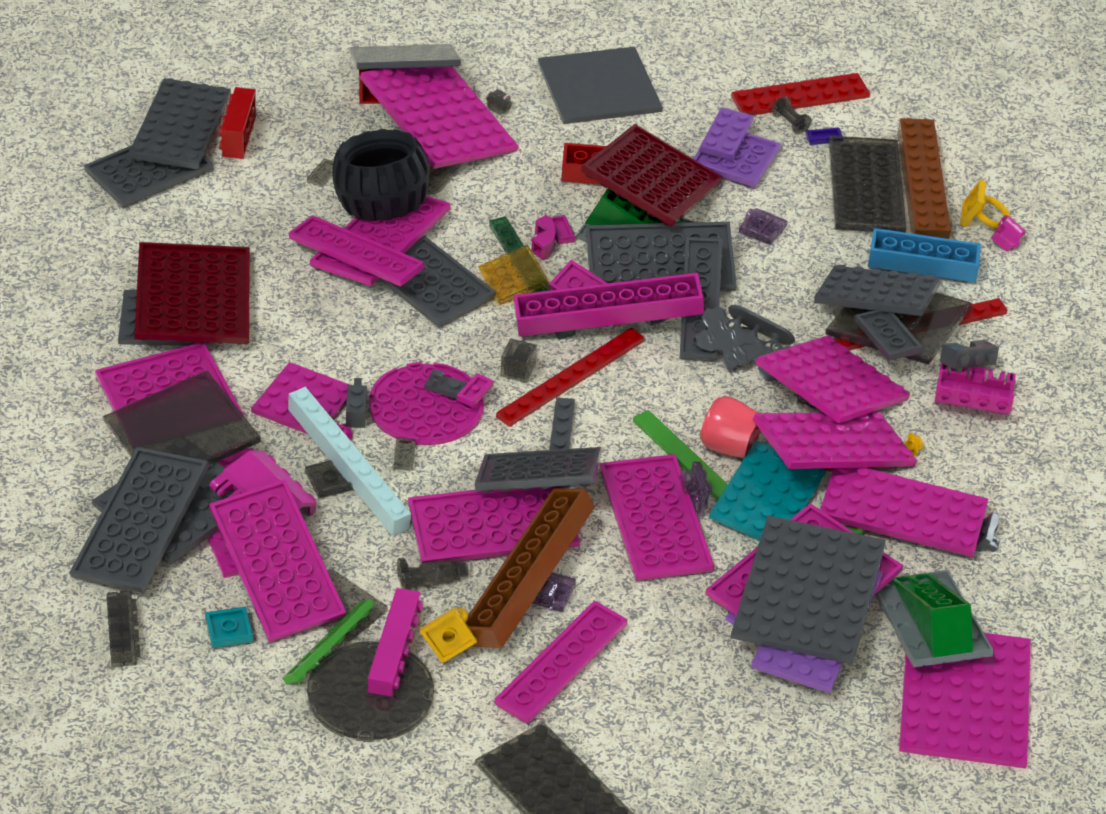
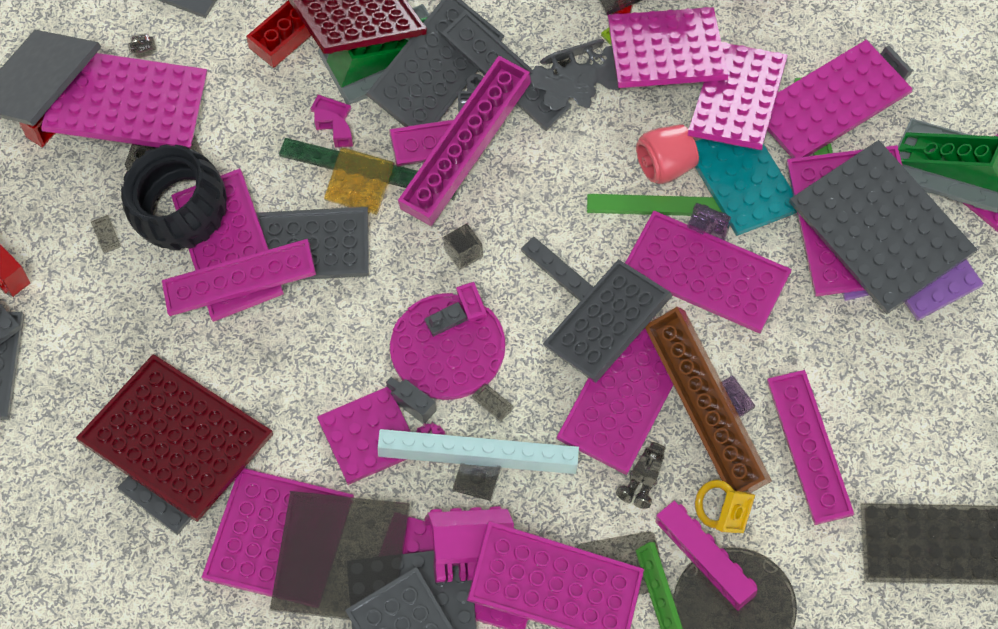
camera: 45 degrees left, 20 degrees up
(569, 377) = (504, 223): red plate -> none
(914, 443) = (768, 43): yellow plate -> none

